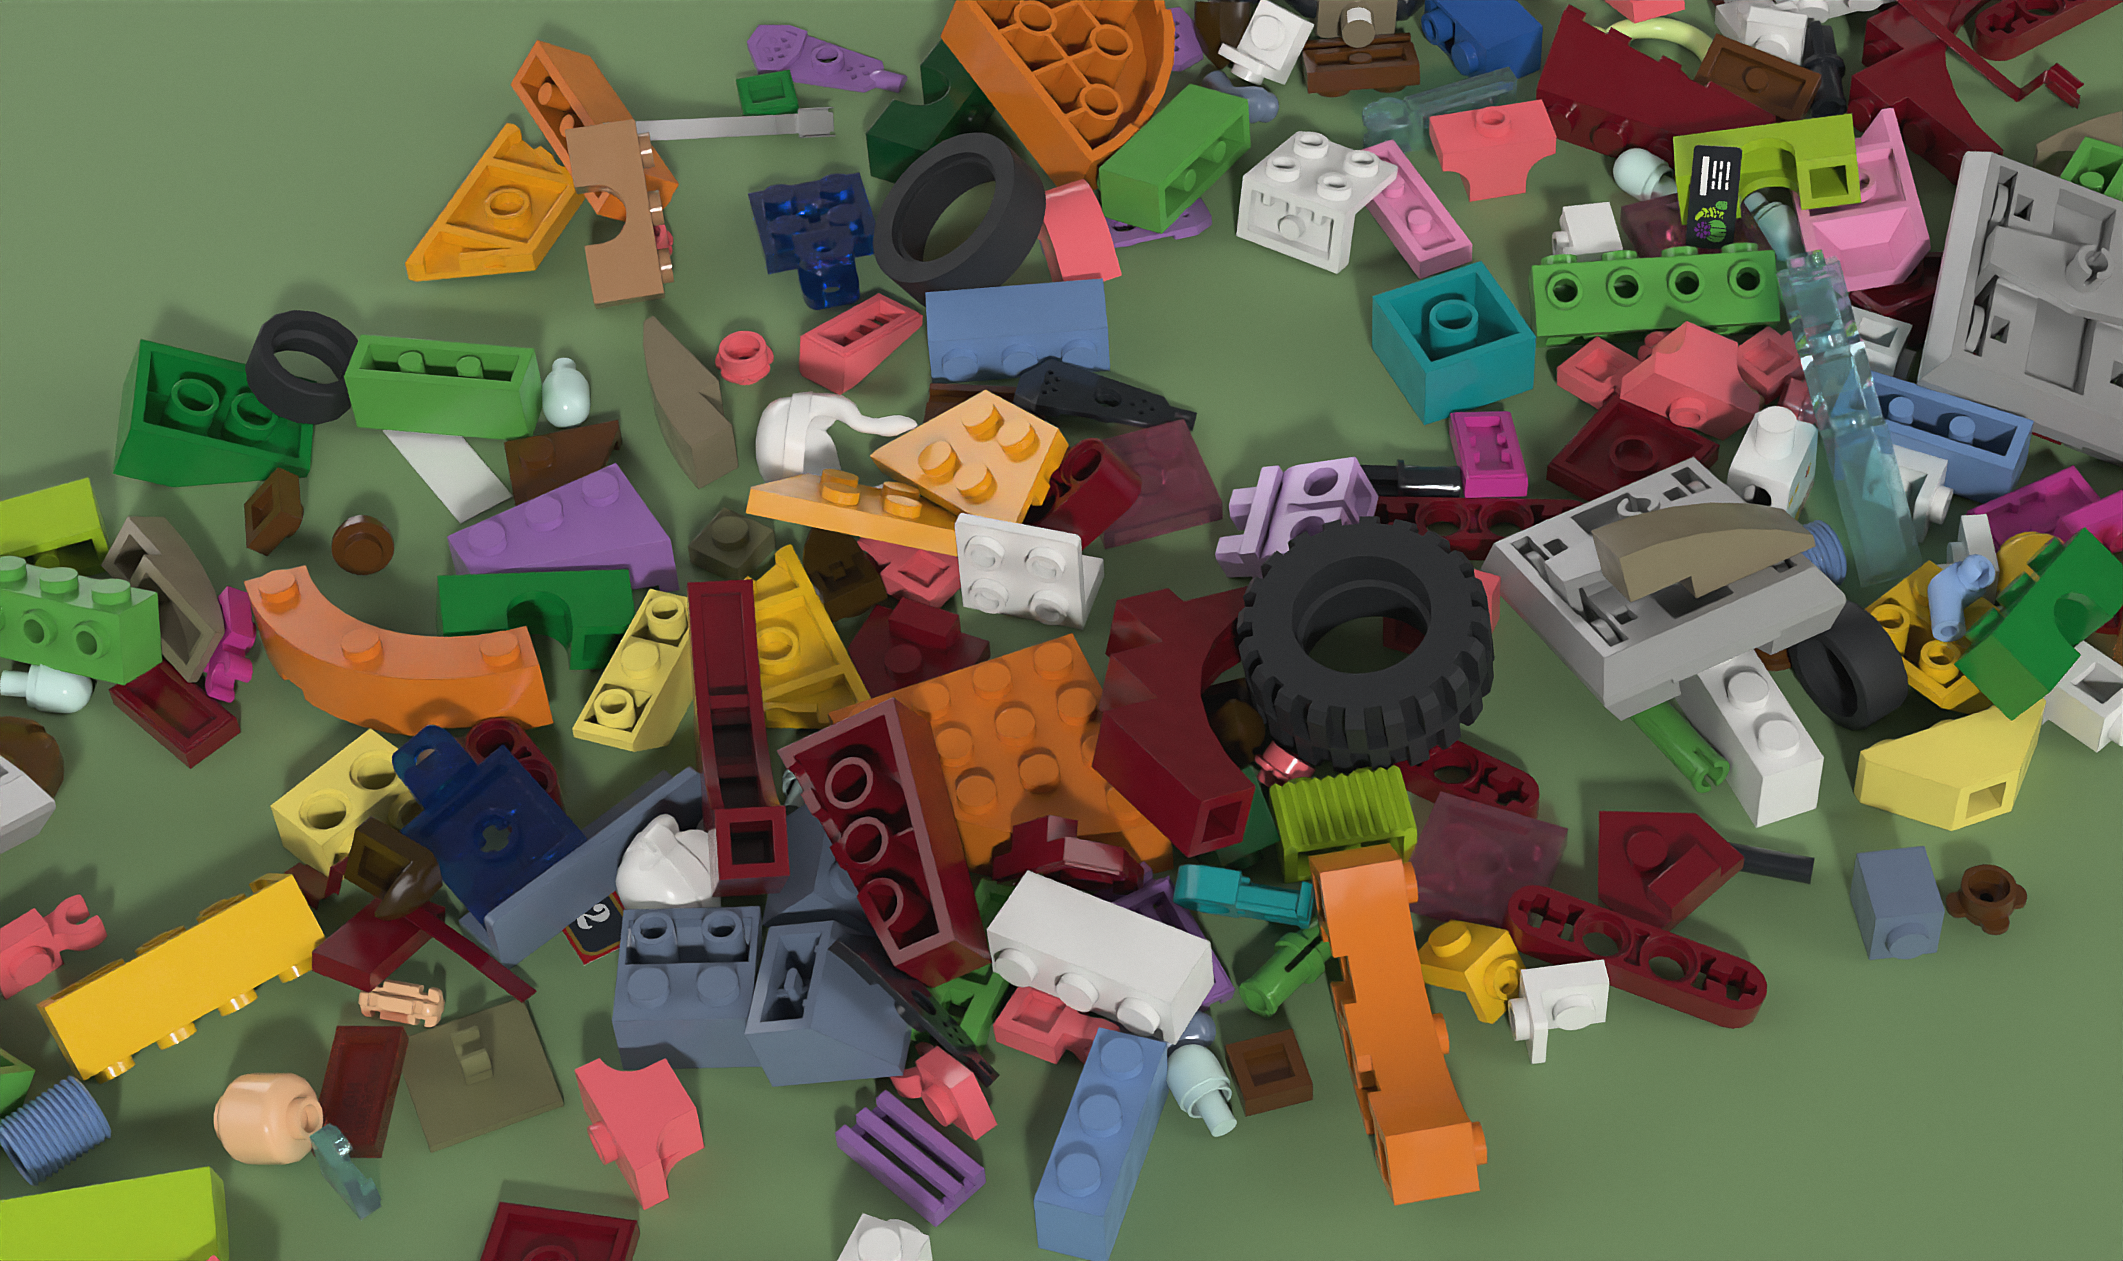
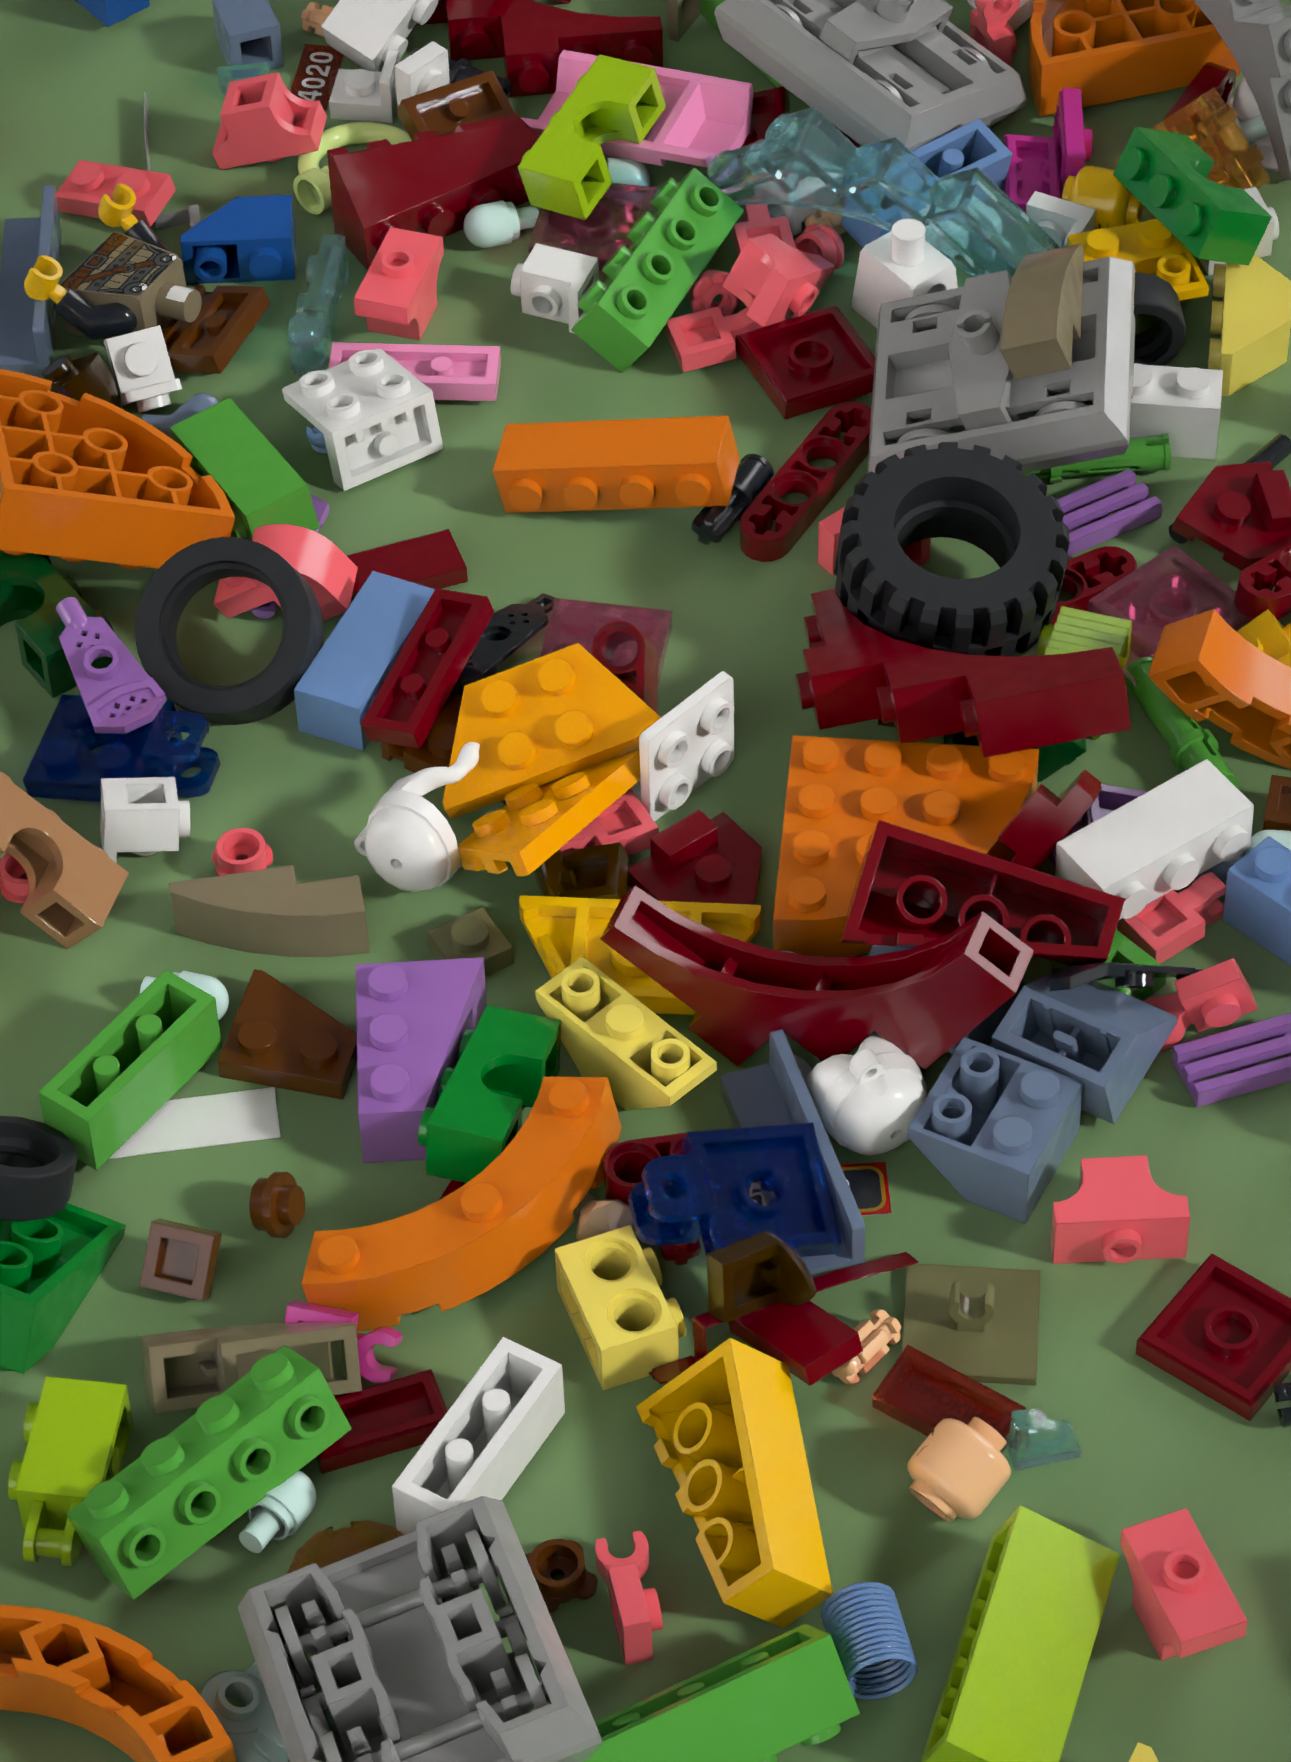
camera: 65 degrees left, 0 degrees up
(50, 884) = (563, 1558): none -> reddish brown plate
(140, 774) = (483, 1436): none -> white brick
(746, 284) = (142, 816): none -> white brick
(853, 345) = (284, 781): coral slope -> none
(859, 192) = (107, 687): none -> medium lavender piece
(1007, 363) = (427, 668): none -> dark red plate
(1160, 311) = (424, 560): none -> dark red tile
(1233, 895) = (1132, 747): teal piece -> none
(1288, 506) = (754, 566): lavender hips -> none
(1360, 380) = (616, 464): none -> orange brick
(1453, 342) = (615, 377): teal brick -> none
(1488, 454) = (762, 433): dark pink plate -> none
(1597, 752) = (1102, 498): none -> medium lavender tile
(1713, 196) = (601, 176): black sticker -> none
(1954, 591) = (1129, 229): light blue arm -> none

